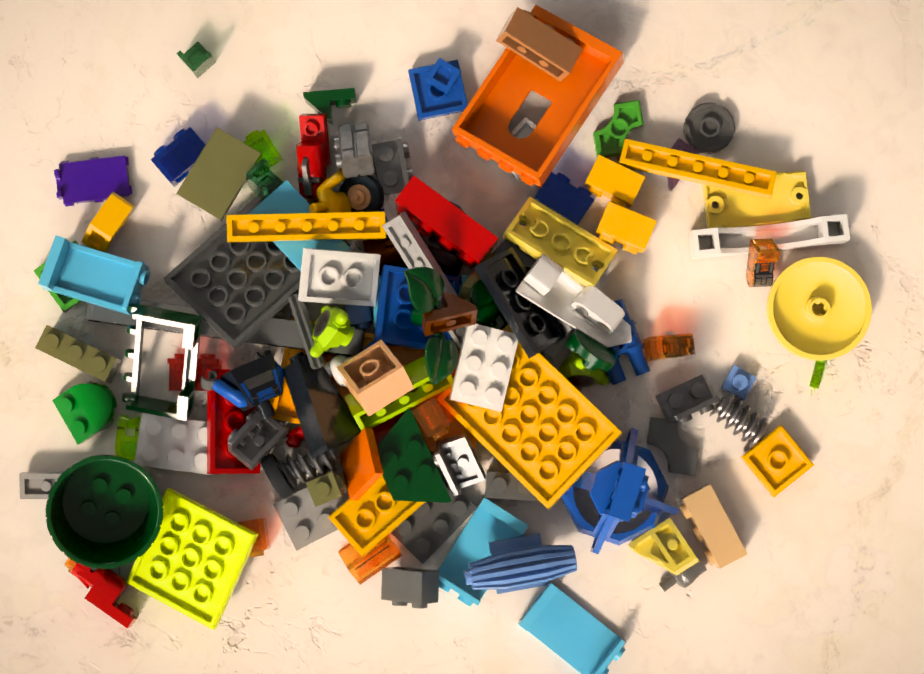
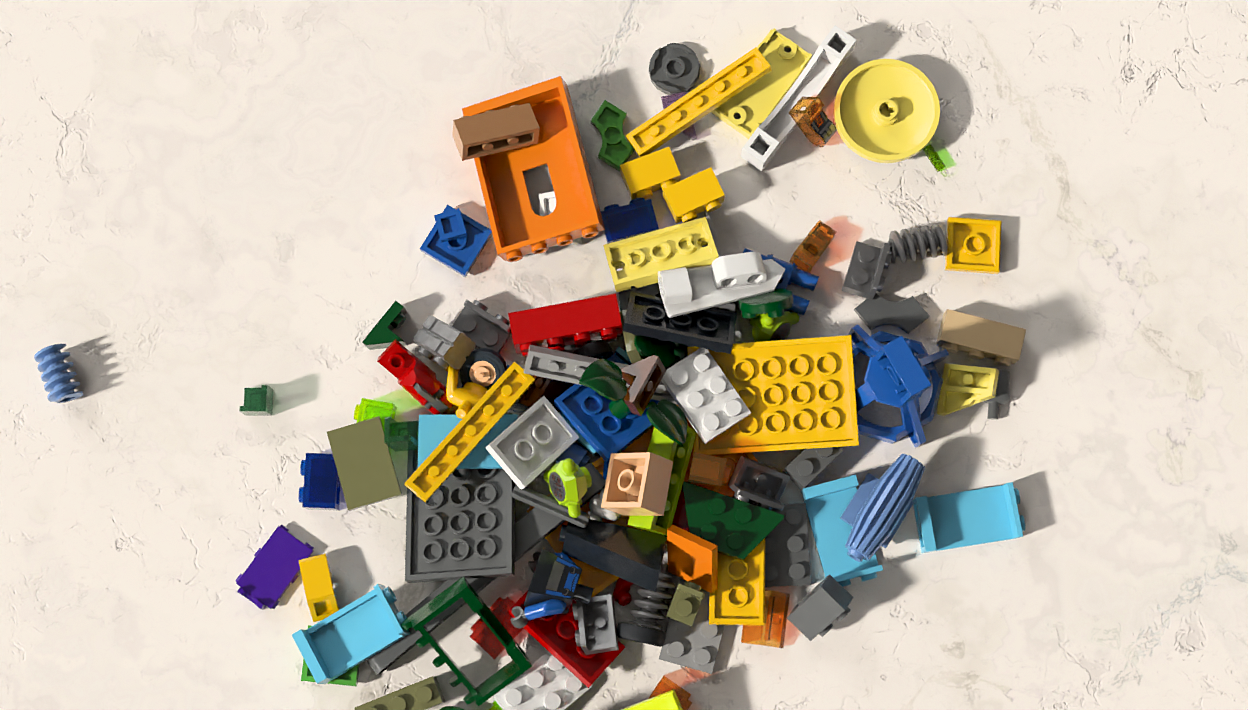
camera: 45 degrees left, 5 degrees down
(738, 382) = (887, 220): medium blue plate -> none

